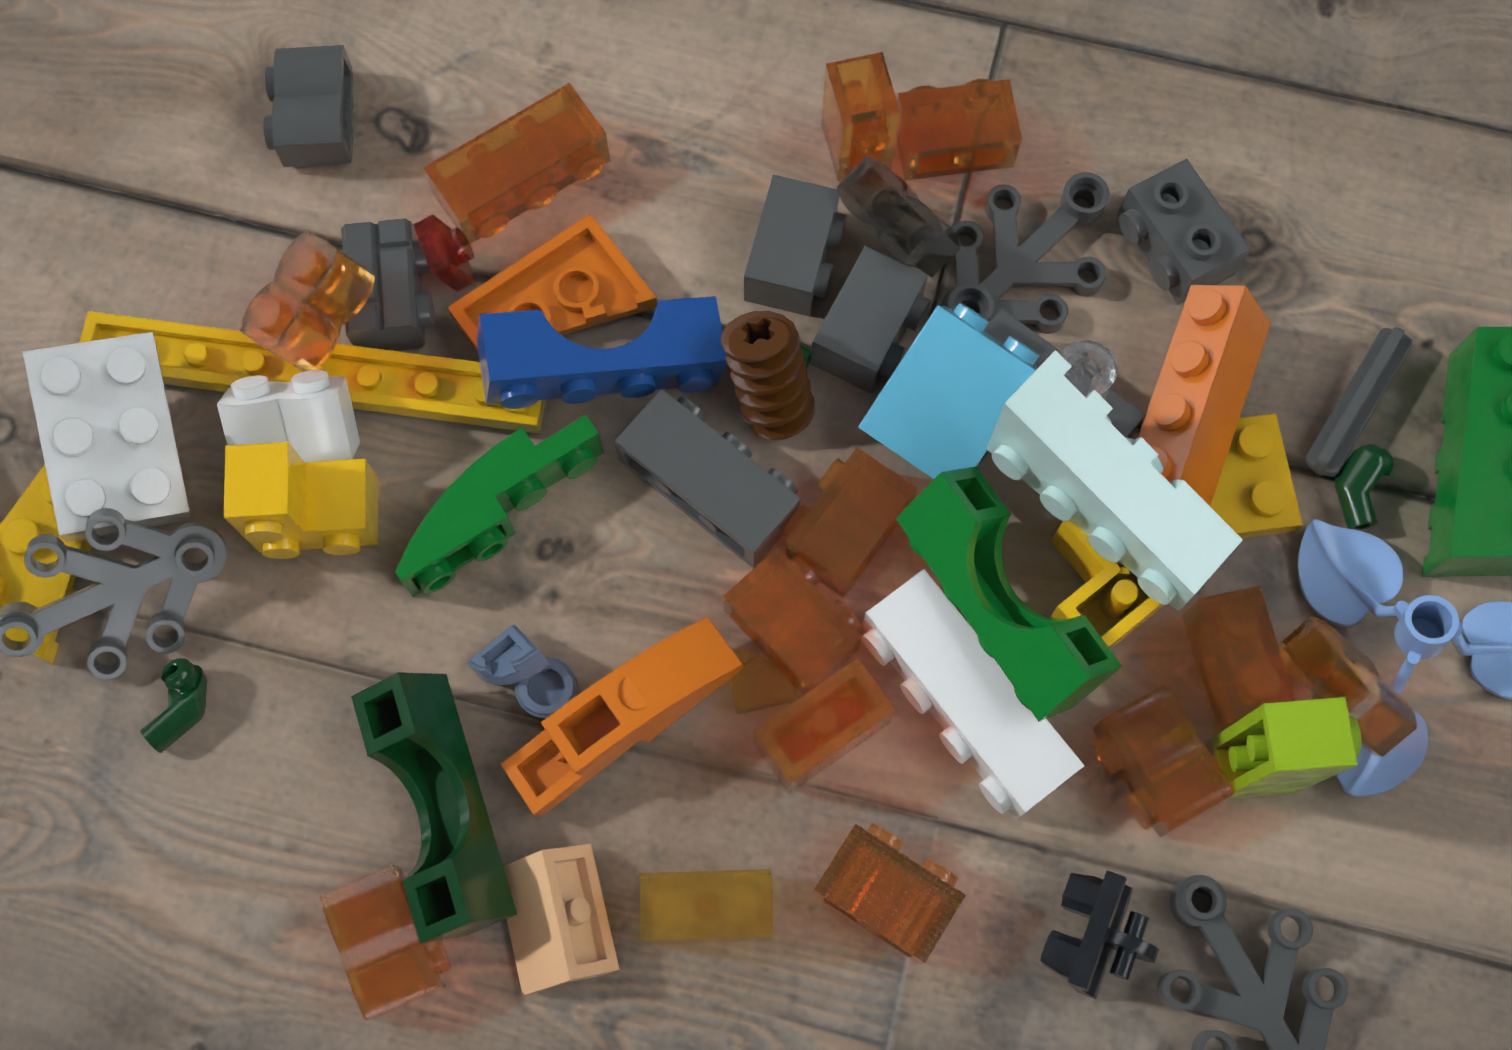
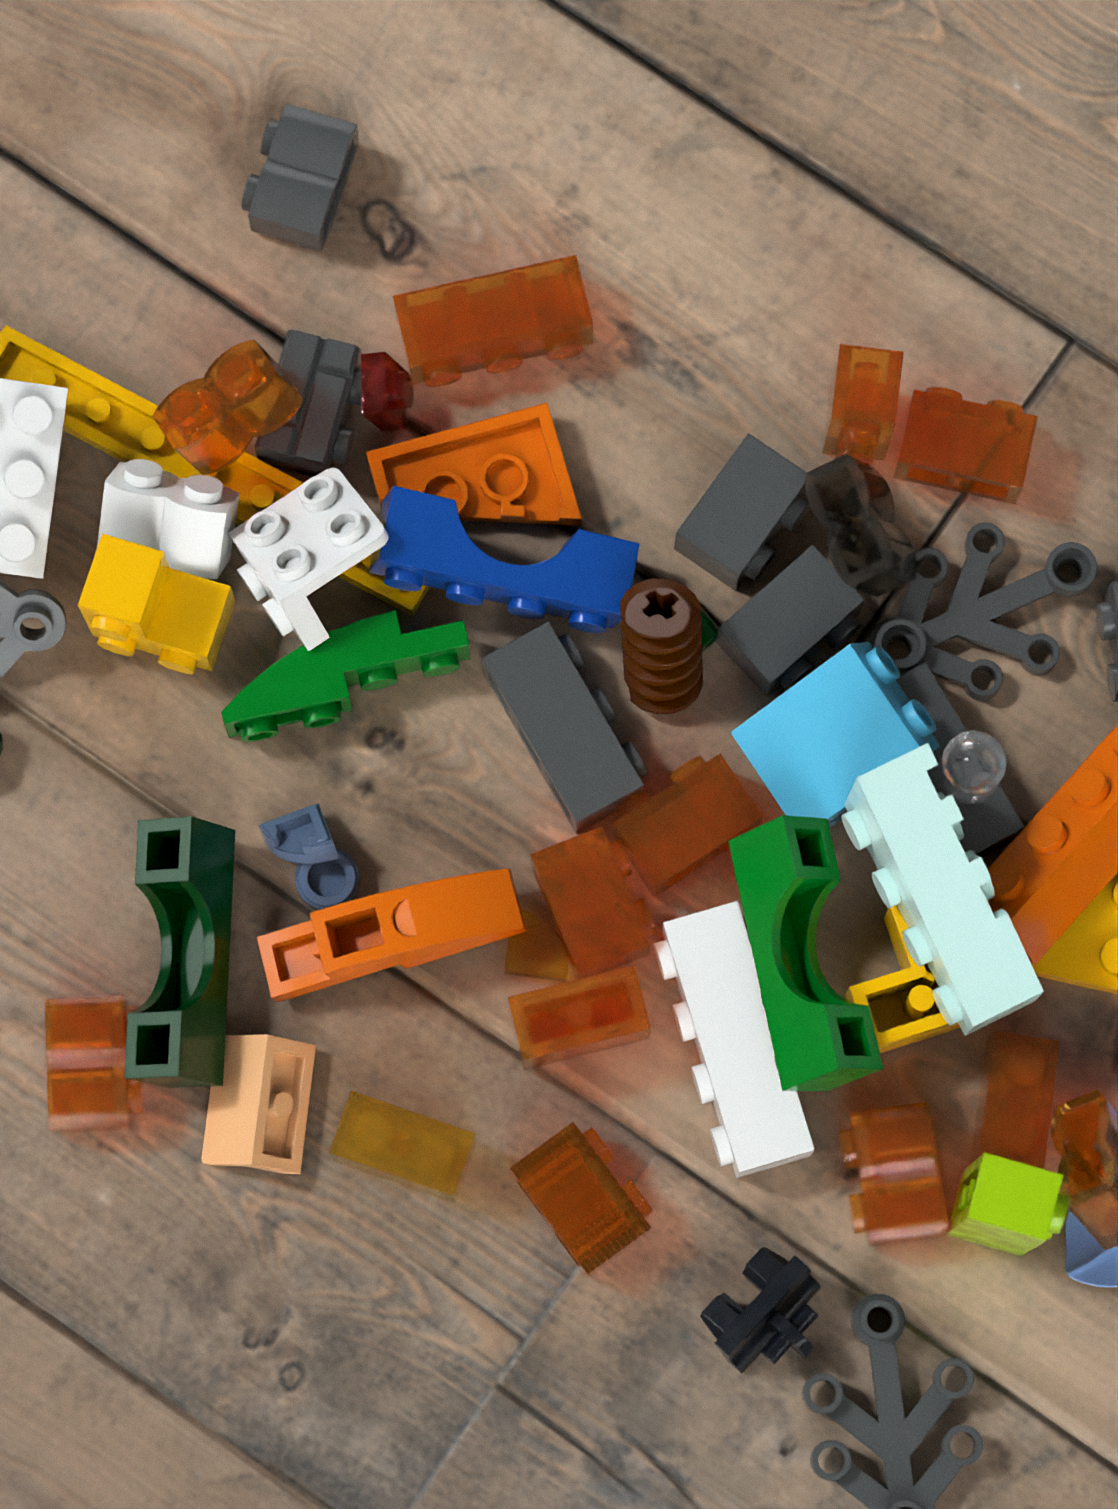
camera: 20 degrees right, 5 degrees up
(416, 398) = (303, 546): none -> white bracket

